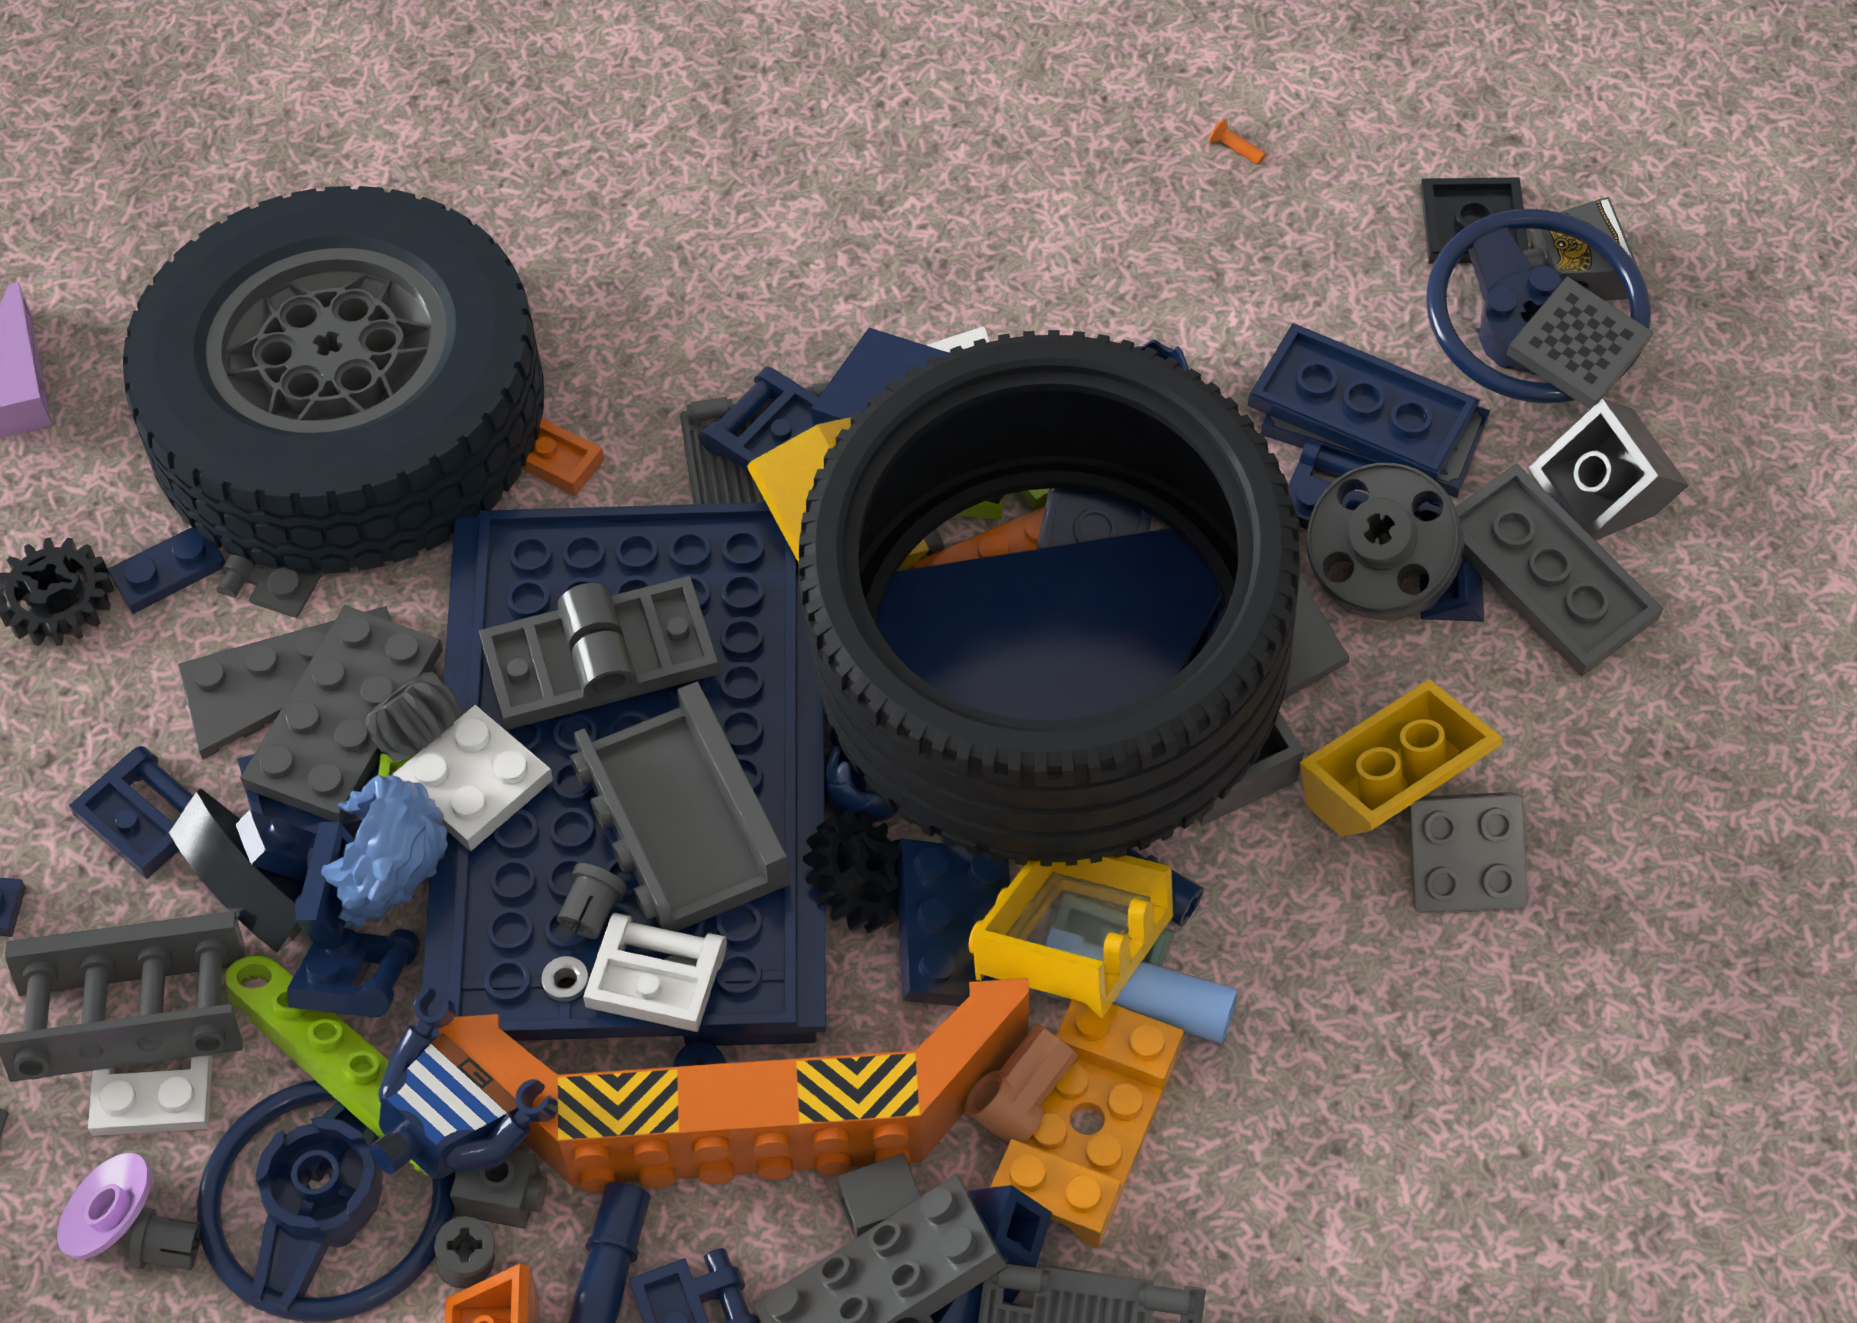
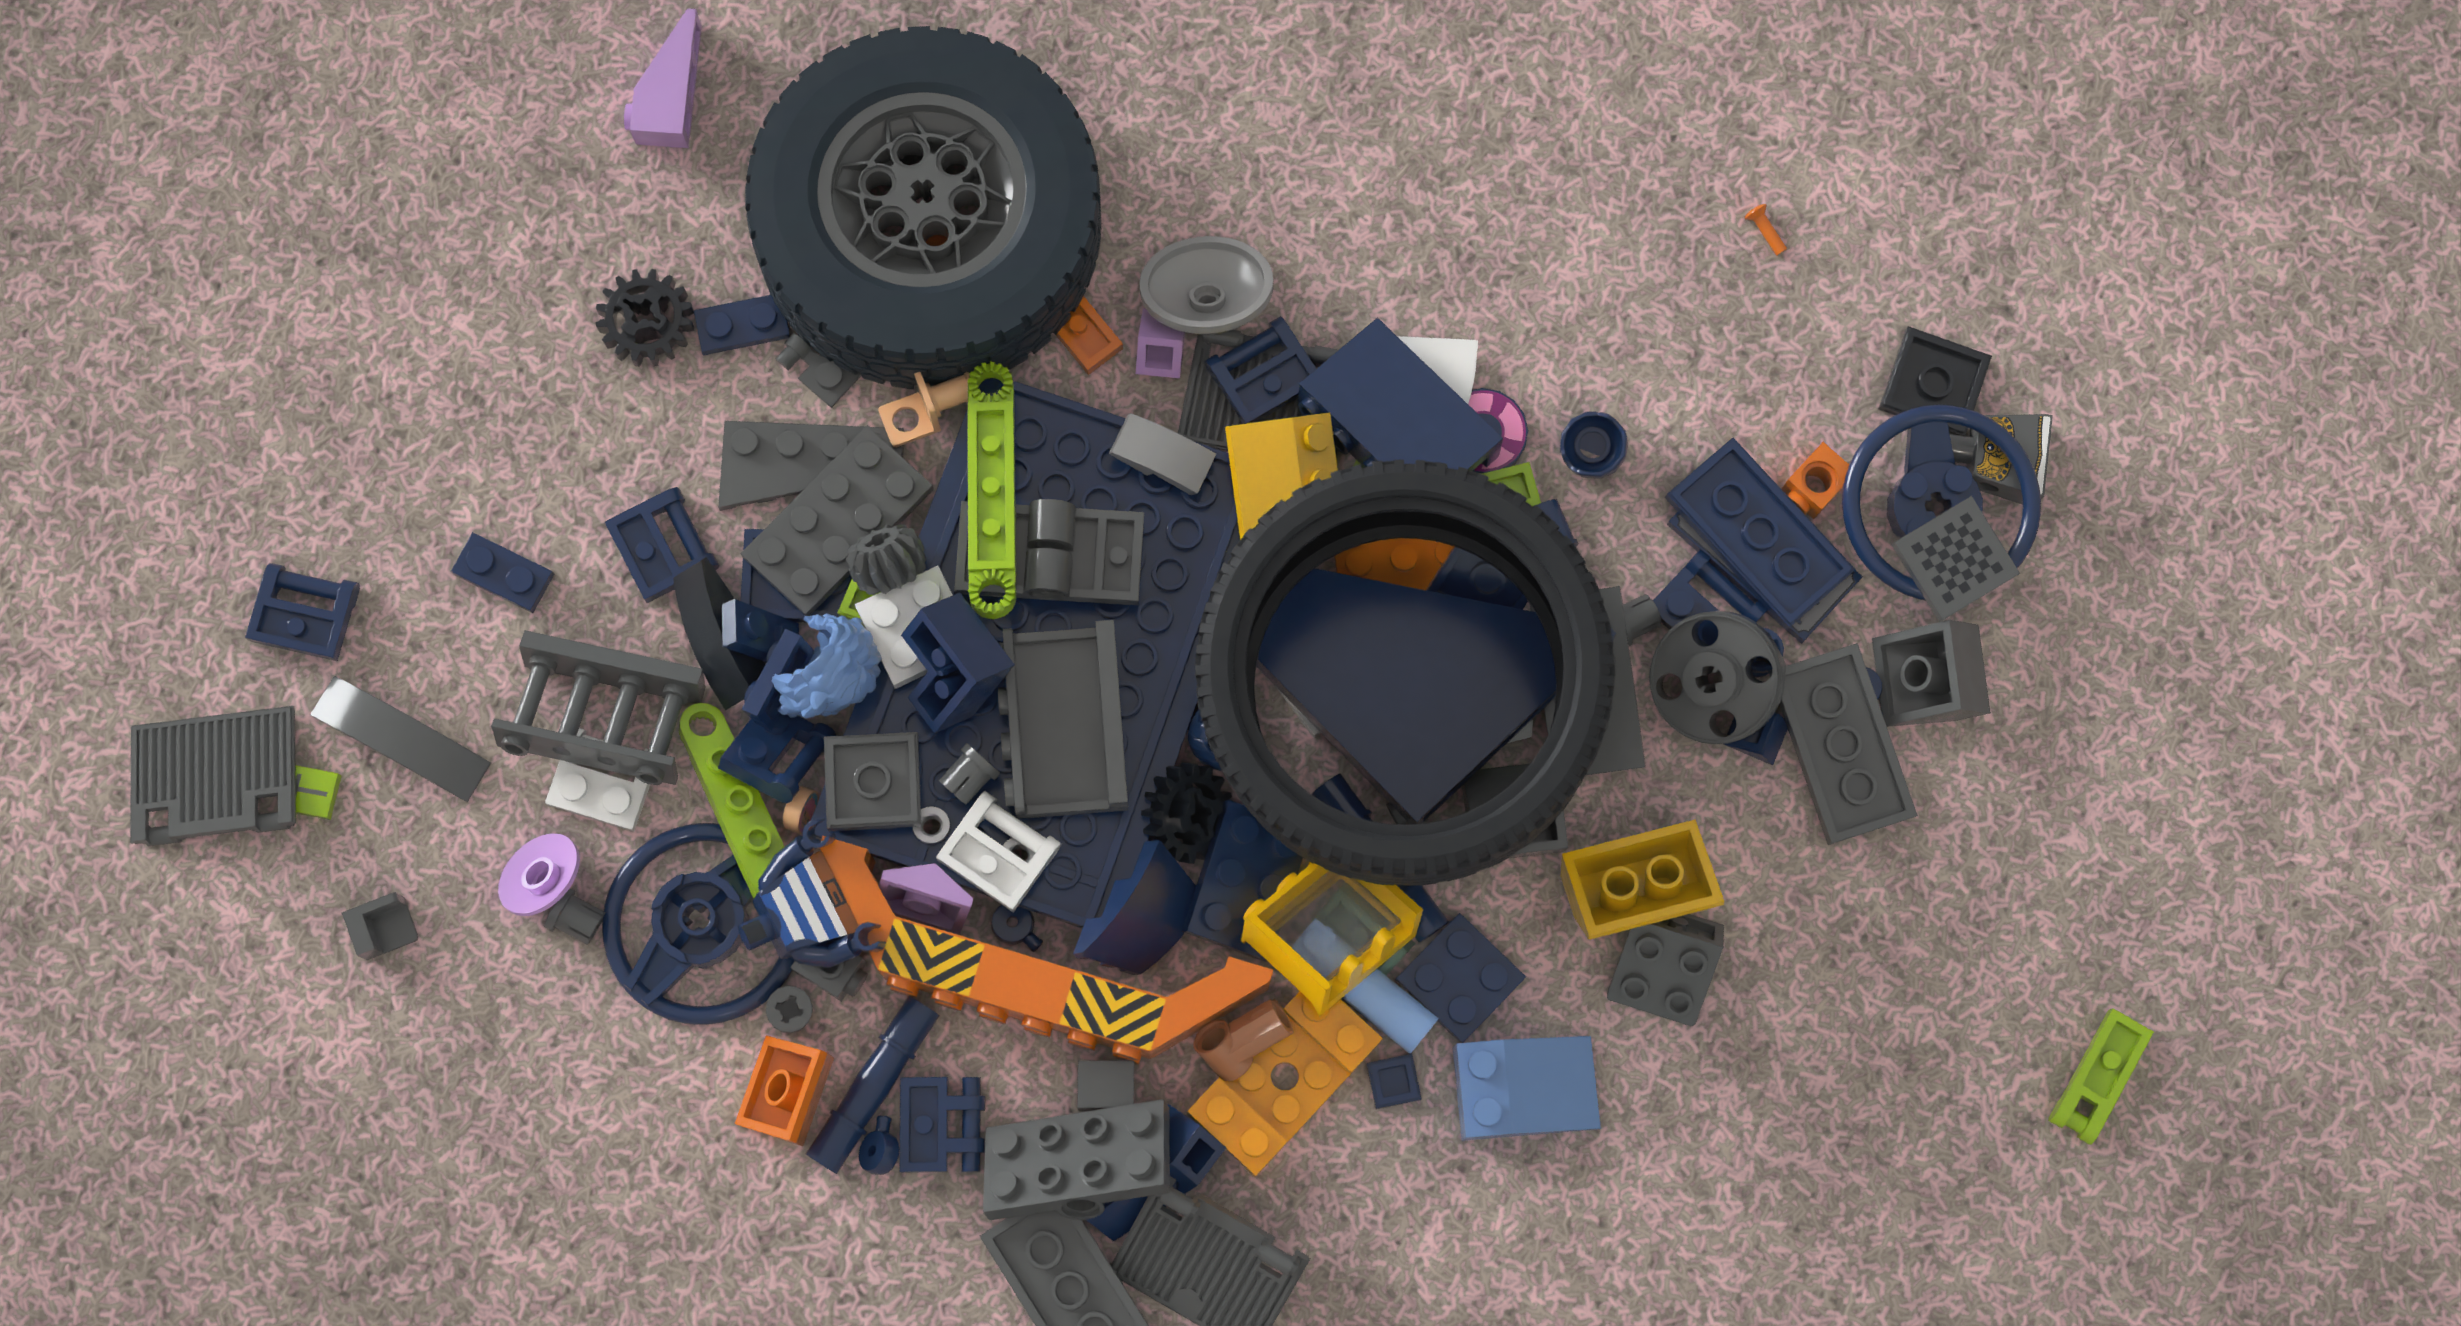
camera: 15 degrees right, 20 degrees up
(396, 1021) = (800, 810): none -> light nougat tile
(407, 566) = (927, 405): none -> light nougat bracket
(479, 946) = (872, 781): none -> dark grey plate
(510, 604) = (991, 490): none -> lime plate
(541, 776) = (960, 661): none -> dark blue brick
(587, 1041) = (926, 897): none -> lavender slope
(644, 437) = (1159, 348): none -> lavender brick
(673, 362) = (1206, 285): none -> light grey dish
(679, 515) = (1163, 453): none -> light grey slope
(849, 987) = (1141, 914): none -> dark blue slope
(1215, 1082) = (1393, 1081): none -> dark blue tile
(1245, 944) = (1460, 978): none -> dark blue plate
(1364, 1032) = (1525, 1087): none -> medium blue slope
(1401, 332) = (1826, 466): none -> orange brick

